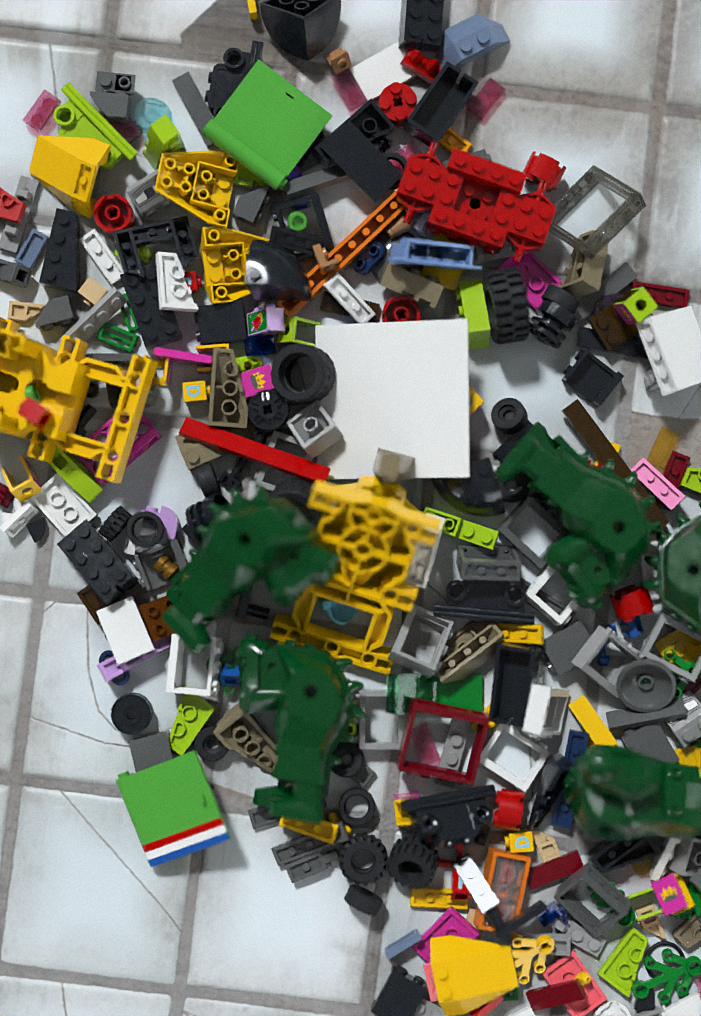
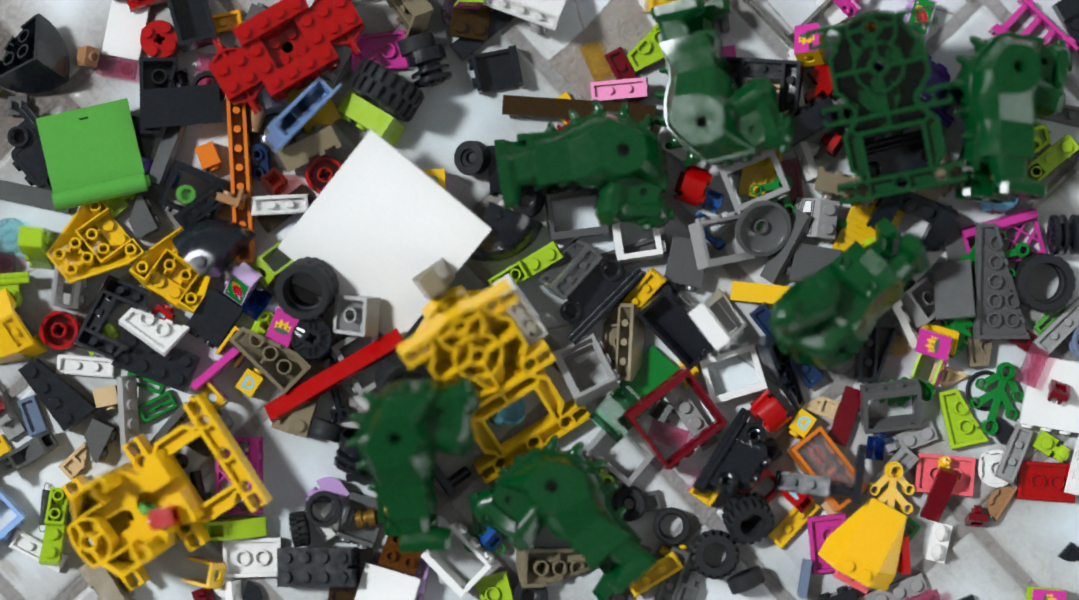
camera: 45 degrees left, 0 degrees up
(257, 35) = (15, 103): none -> dark grey tile
(340, 215) = (209, 156): none -> orange brick
(363, 281) = (274, 182): none -> clear red brick
(438, 724) = (661, 411): none -> dark grey tile

